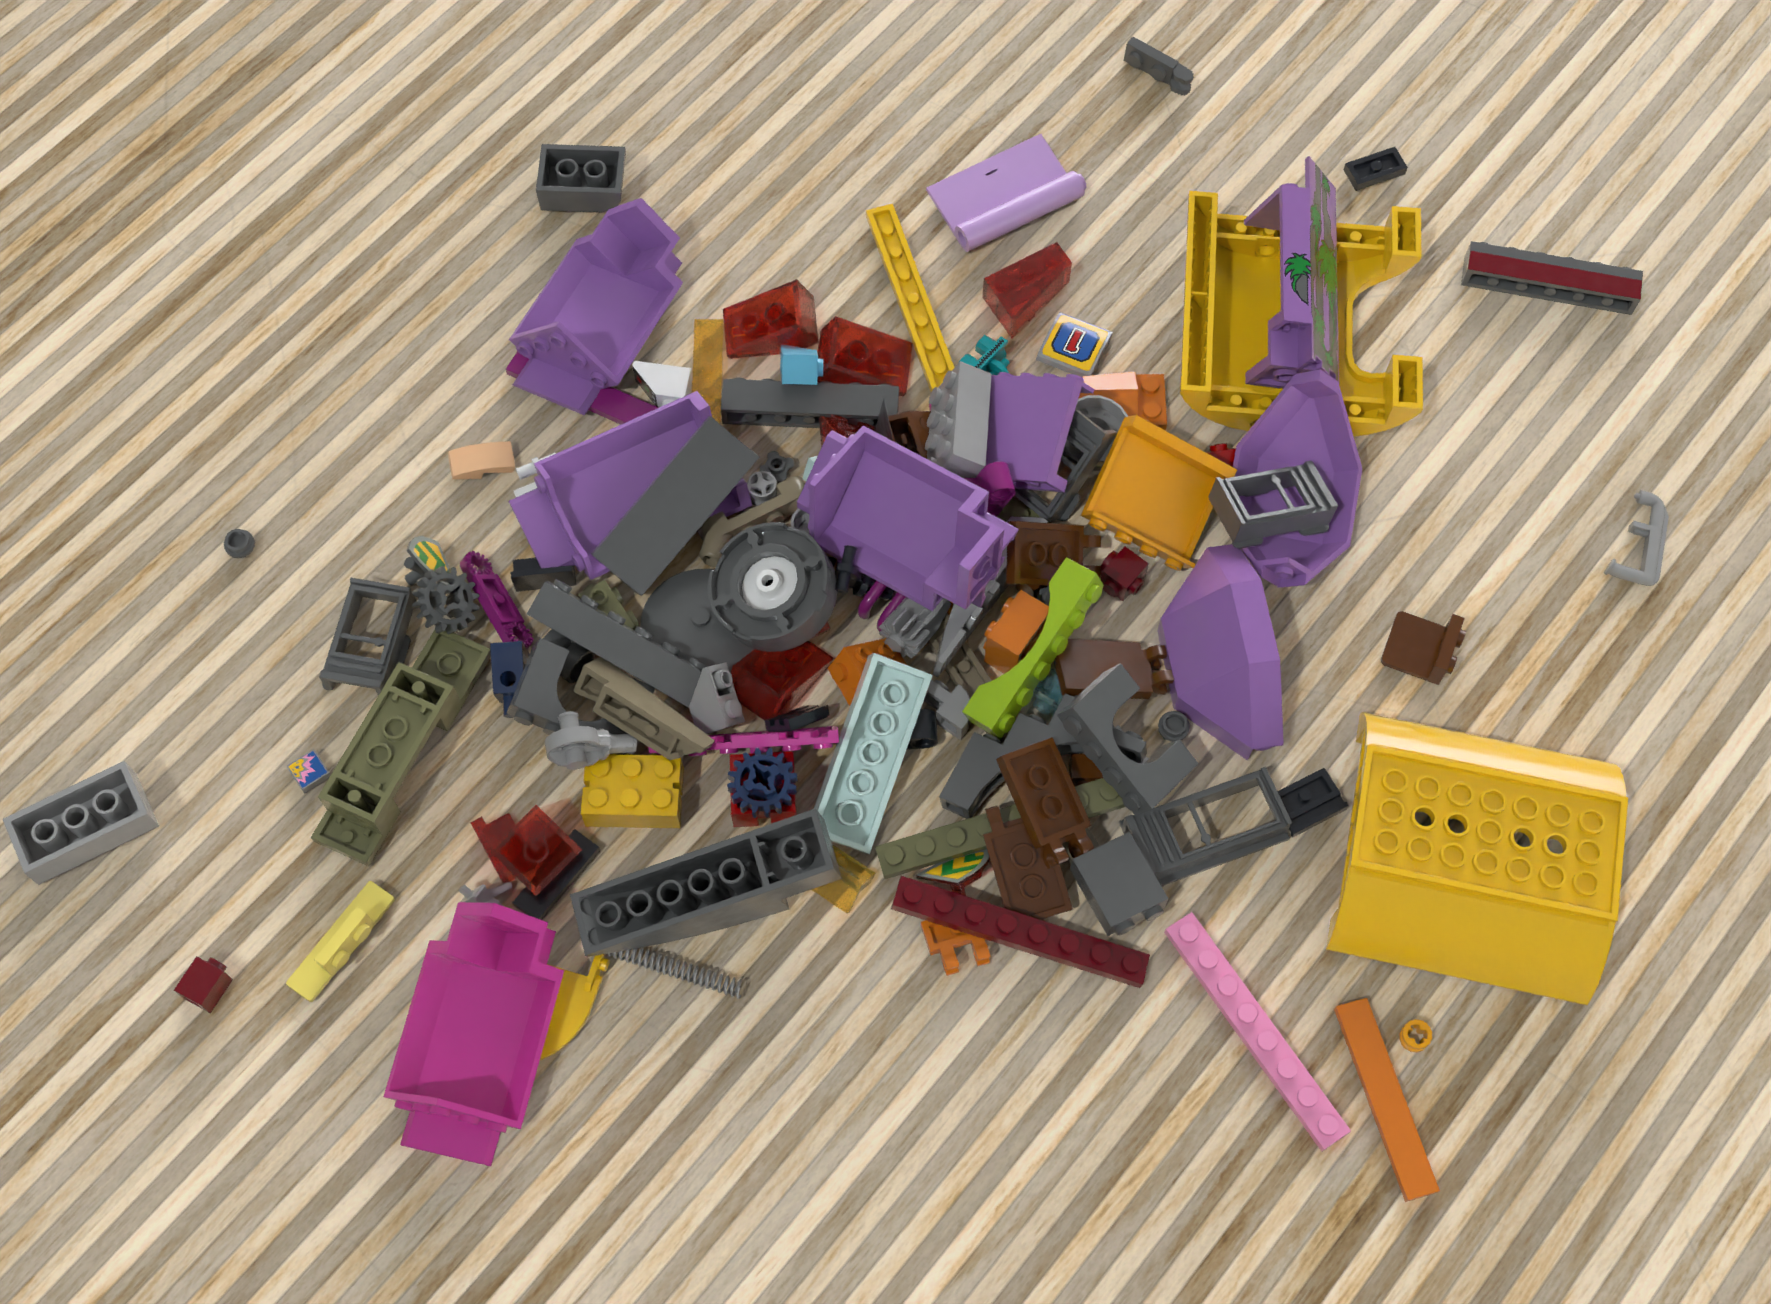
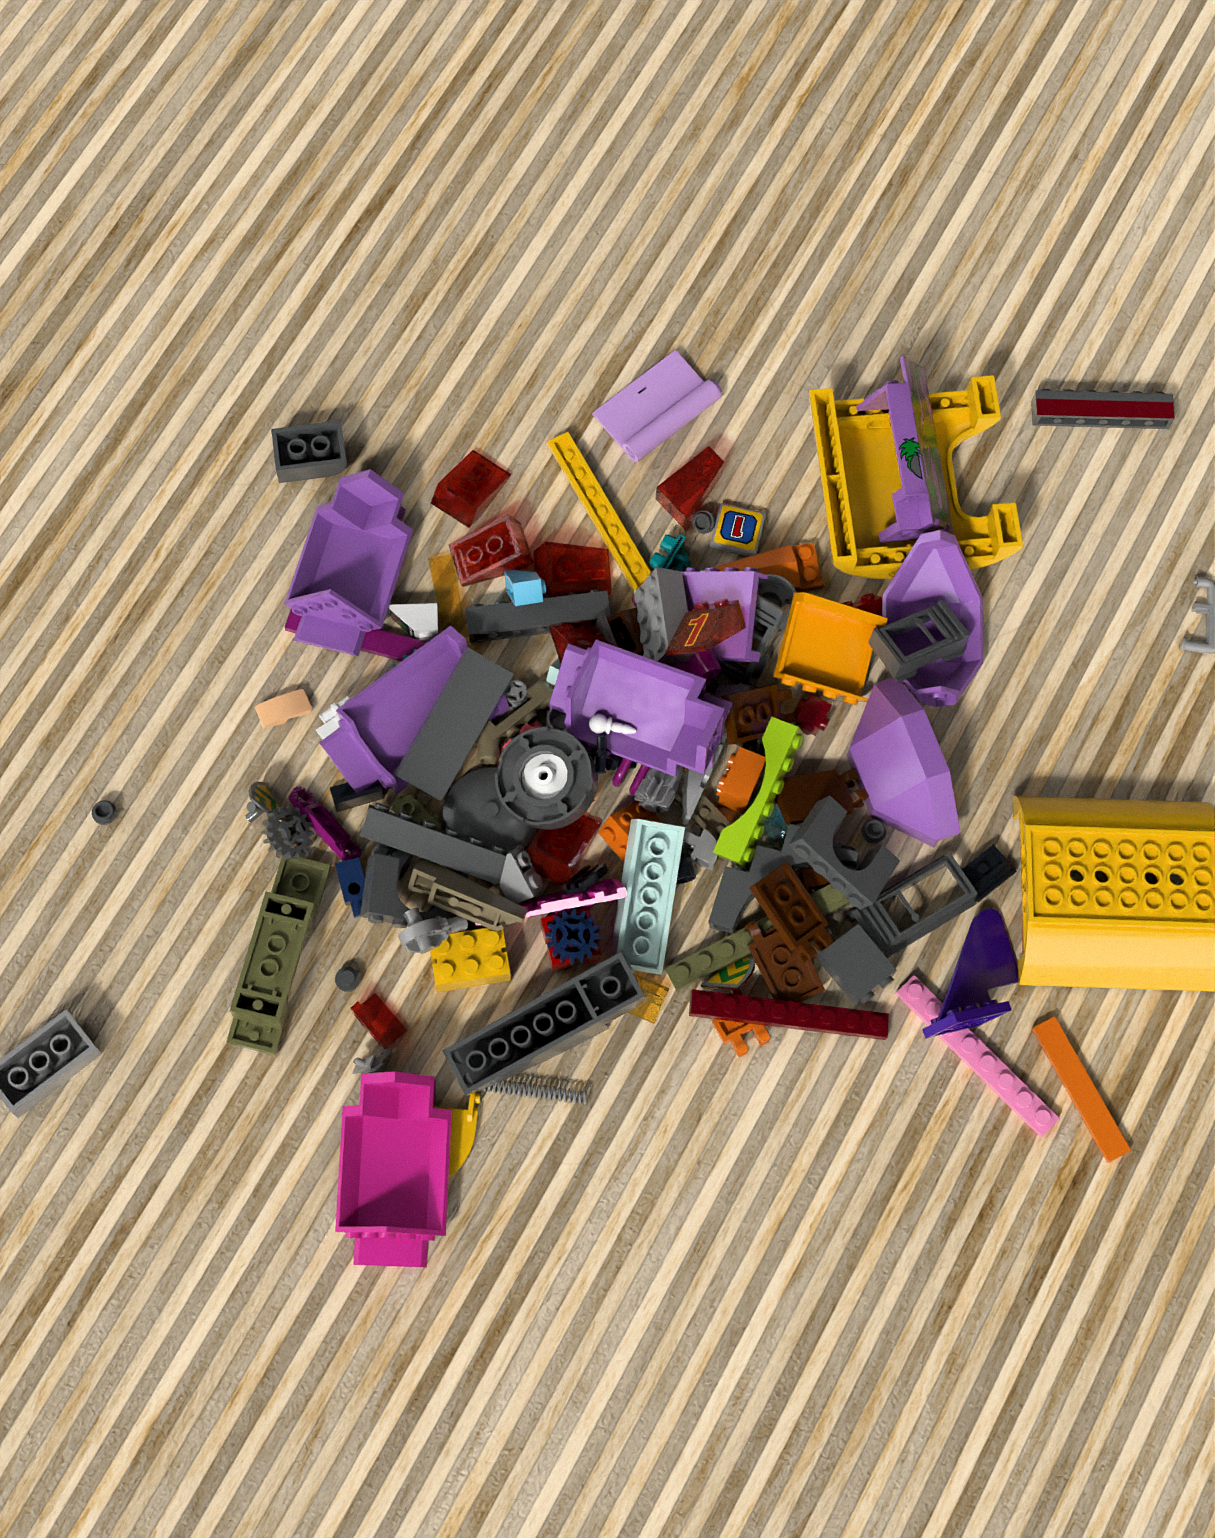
camera: 15 degrees left, 5 degrees up
(204, 983) = (172, 1171): dark red brick -> none
(309, 771) = (209, 988): tile -> none
(340, 941) = (267, 1122): light yellow bracket -> none
(364, 670) = (231, 900): dark grey piece -> none
(478, 789) = (347, 979): none -> dark grey plate
(536, 850) = (406, 1019): clear red slope -> none
(540, 905) = (424, 1036): black tile -> none
(761, 249) = (469, 488): none -> clear red slope
(775, 459) = (528, 669): dark grey plate -> none
(851, 533) = (599, 724): none -> white bar
(1006, 432) = (707, 626): none -> clear red slope
(1034, 329) = (704, 521): none -> dark grey plate
(1159, 66) = (760, 273): dark grey hinge -> none
(1283, 912) = (982, 965): none -> dark purple piece
(1375, 168) = (949, 336): black plate -> none
(1410, 1043) = (1098, 1031): light orange bush -> none
(1423, 646) = (1052, 733): reddish brown bracket -> none

